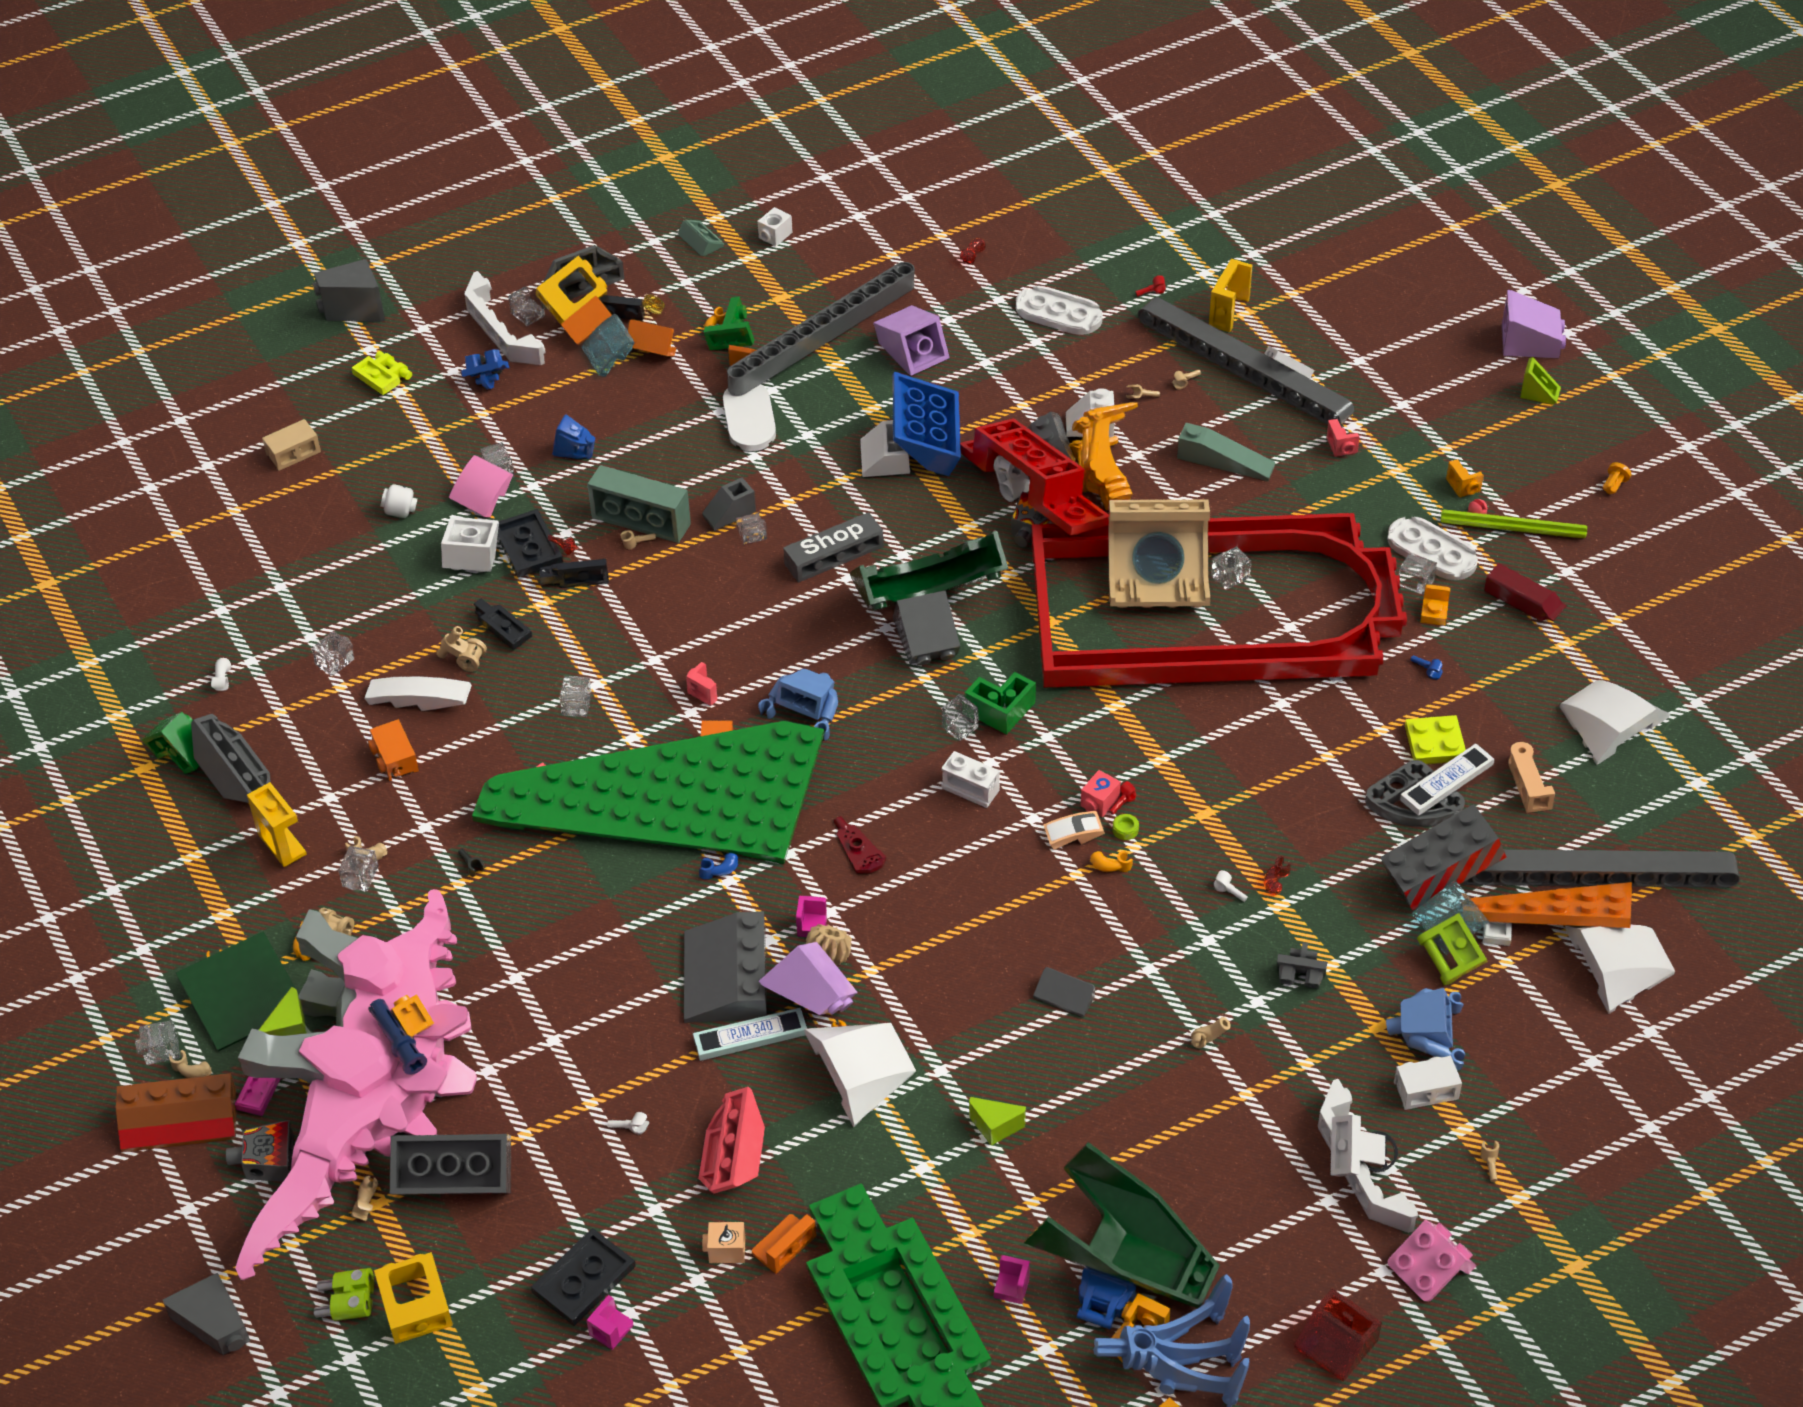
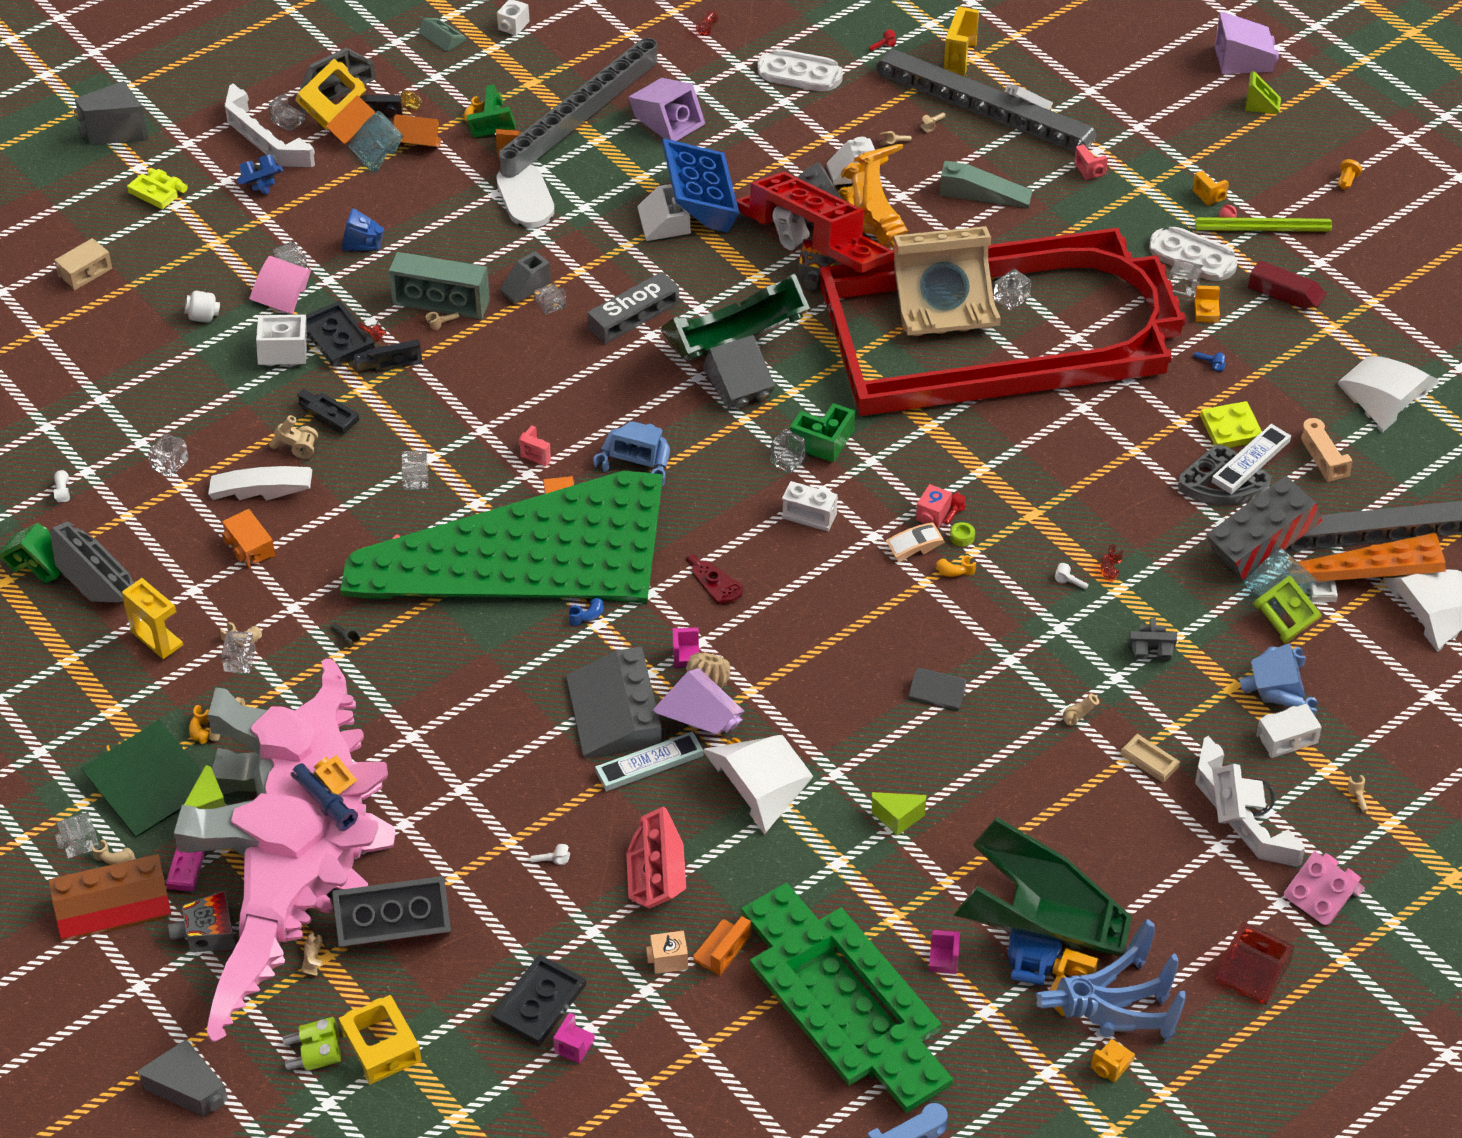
camera: 10 degrees left, 0 degrees up
(1274, 1094) = (1150, 758): none -> tan tile

